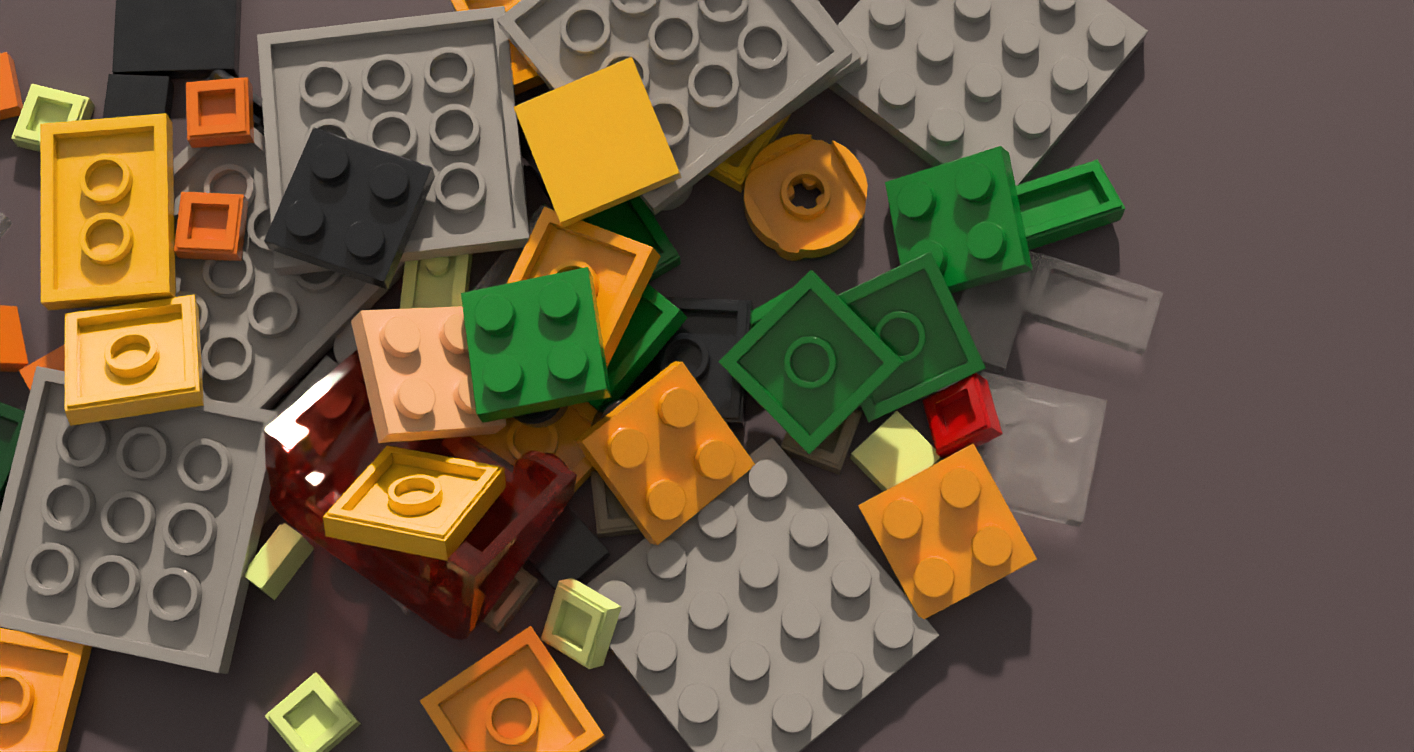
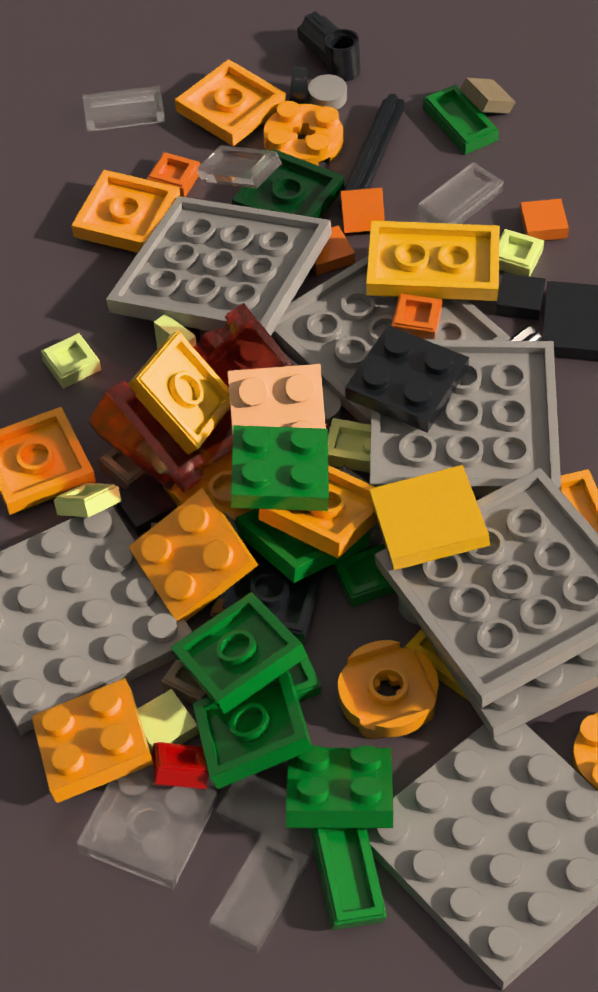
camera: 100 degrees right, 20 degrees down
(132, 360) = (321, 263): yellow tile -> none
(219, 112) = (502, 323): orange tile -> none

